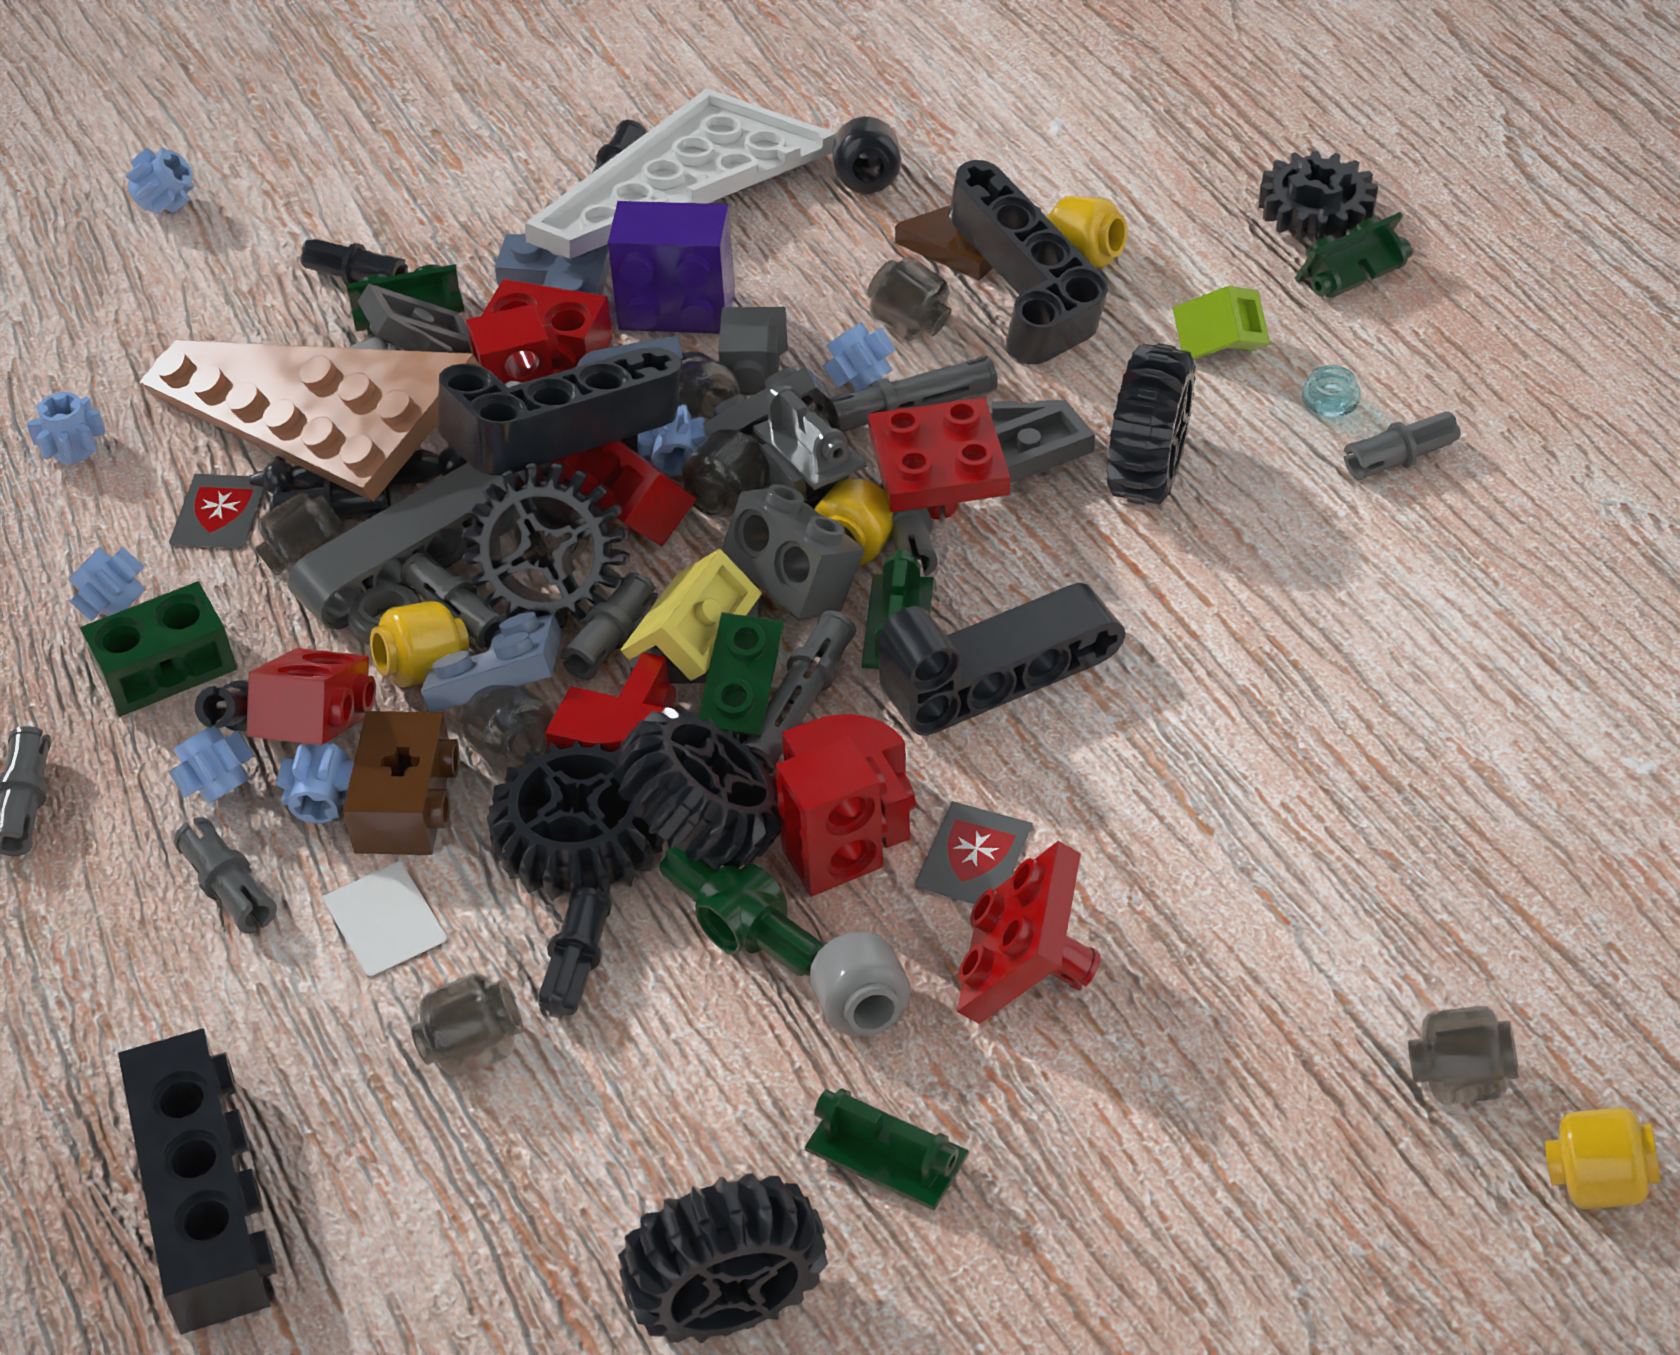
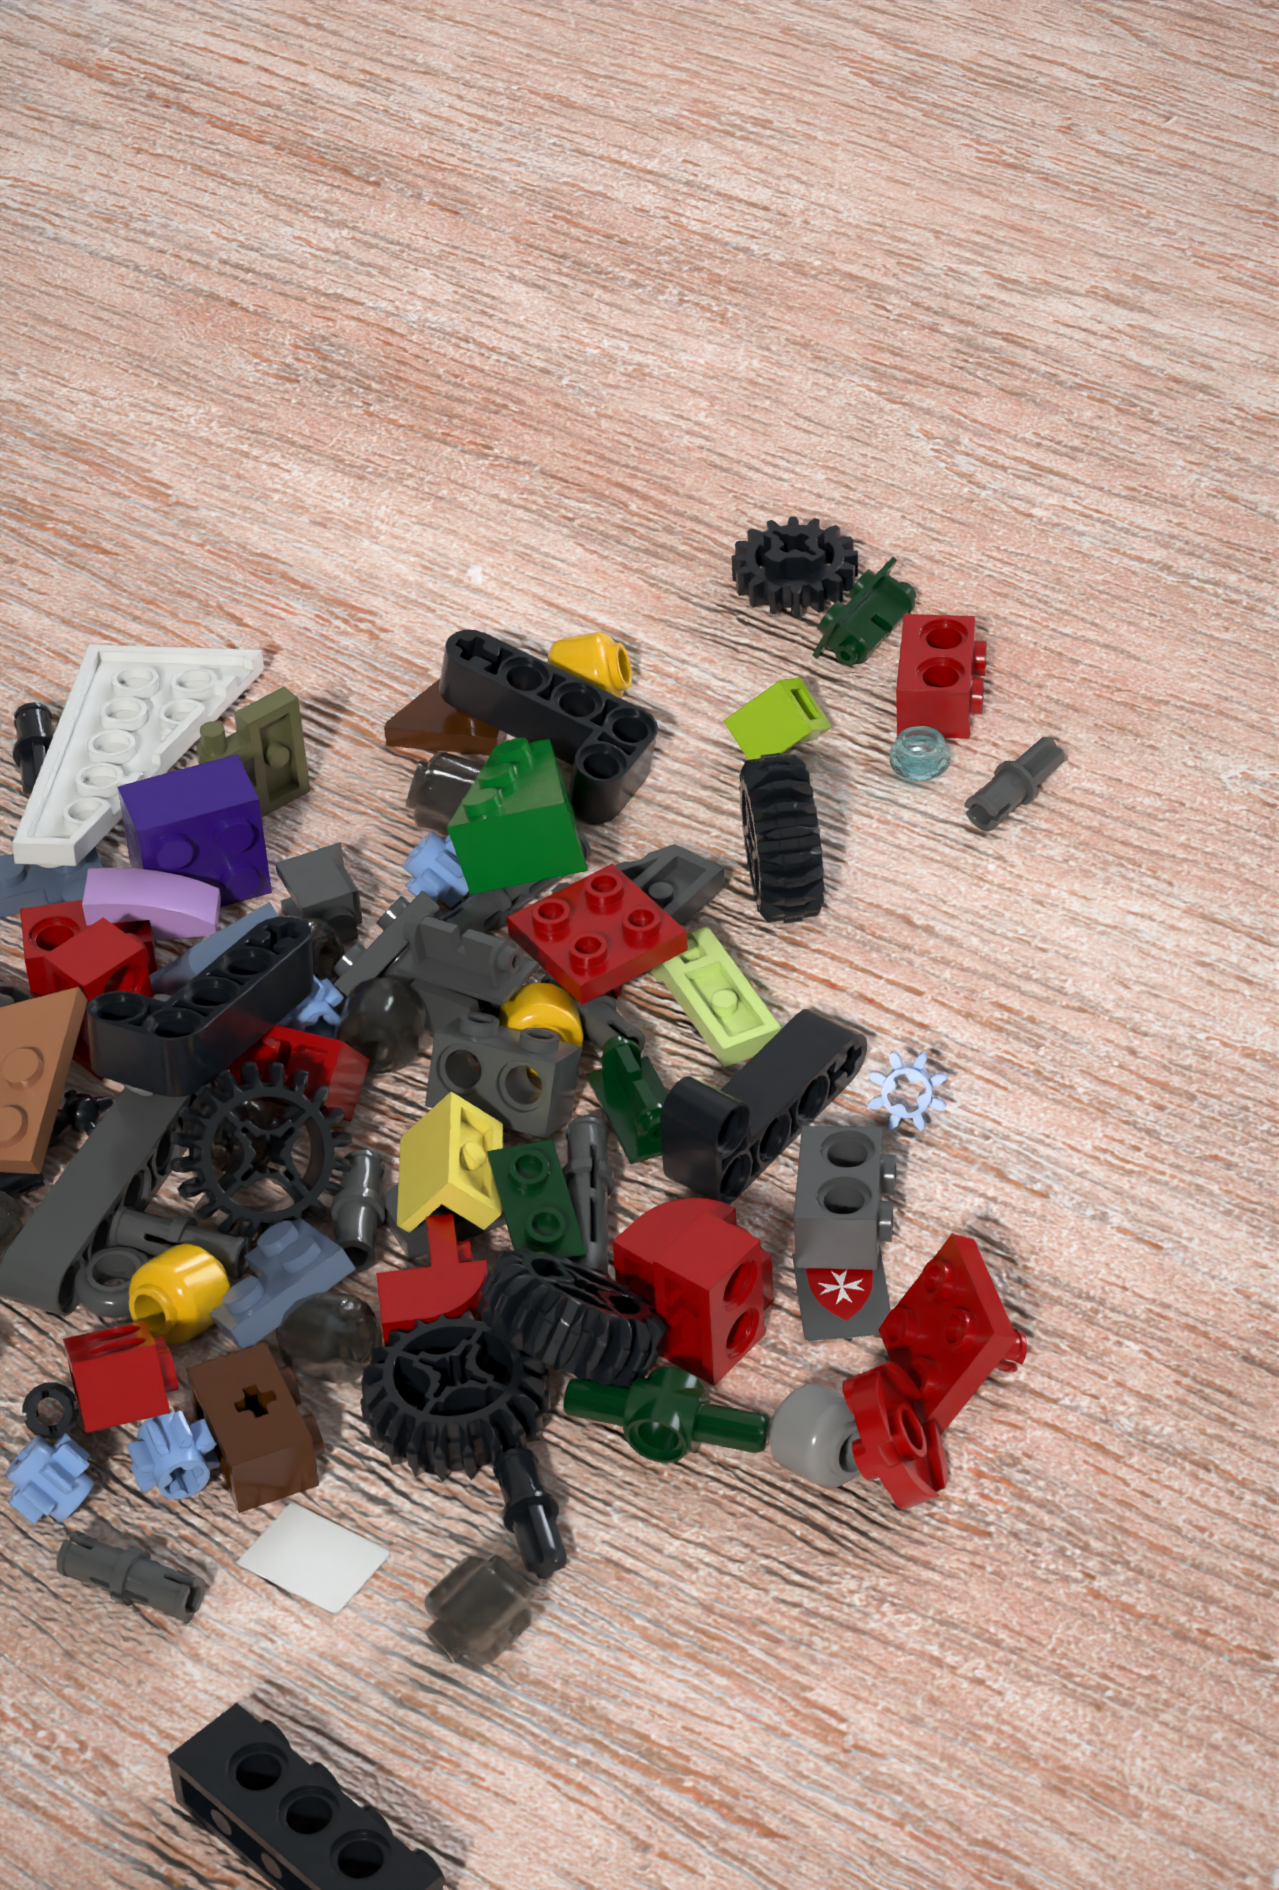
camera: 25 degrees left, 5 degrees down
(614, 310) = (170, 901): none -> lavender slope
(722, 1258) = (863, 1696): black gear -> none
(778, 212) = (268, 745): none -> olive plate
(866, 155) = (309, 662): black head -> none
(884, 1148) = (911, 1565): dark green hinge -> none
(905, 985) = (892, 1440): none -> red plate
(934, 333) = (516, 820): none -> green wedge
(1013, 766) = (841, 1196): none -> dark grey brick
(1022, 545) = (718, 999): none -> yellowish green plate
(1143, 674) = (900, 1107): none -> light blue gear
(1386, 327) = (938, 674): none -> red brick

